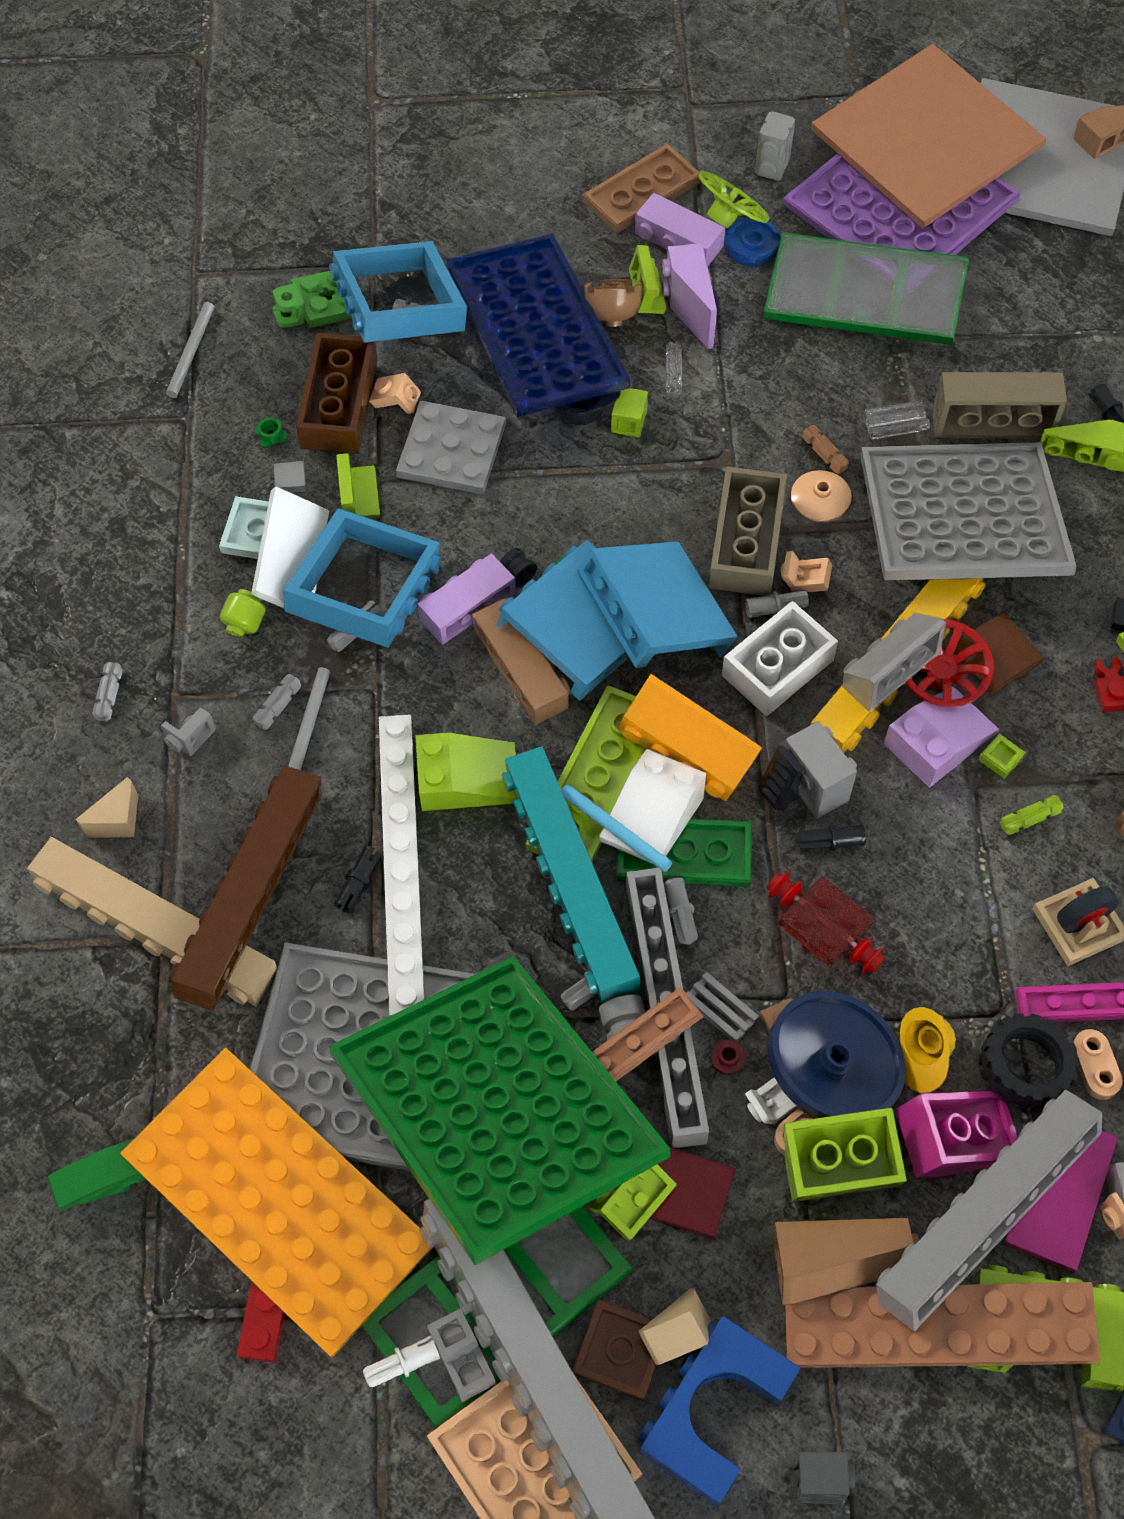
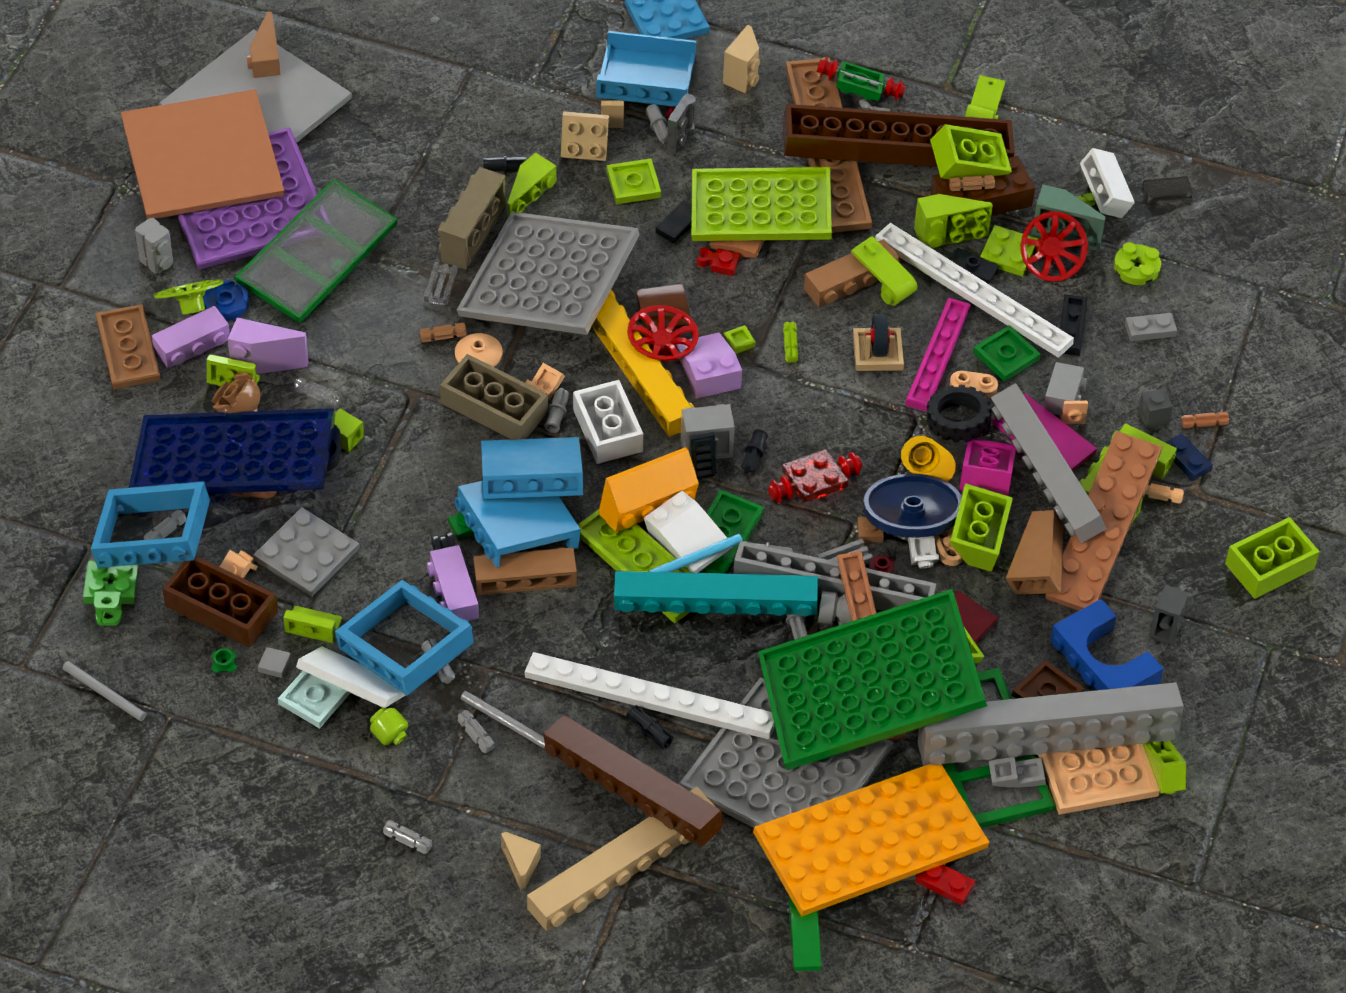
camera: 70 degrees left, 10 degrees down
(192, 734) = (477, 790): light grey bracket -> none
(402, 1362) = (1009, 804): white axle -> none
(462, 771) = (597, 636): lime slope -> none
(677, 1329) = (1051, 651): tan slope -> none
(893, 659) = (655, 351): light grey slope -> none
(1051, 1396) = (1164, 493): none -> light nougat axle

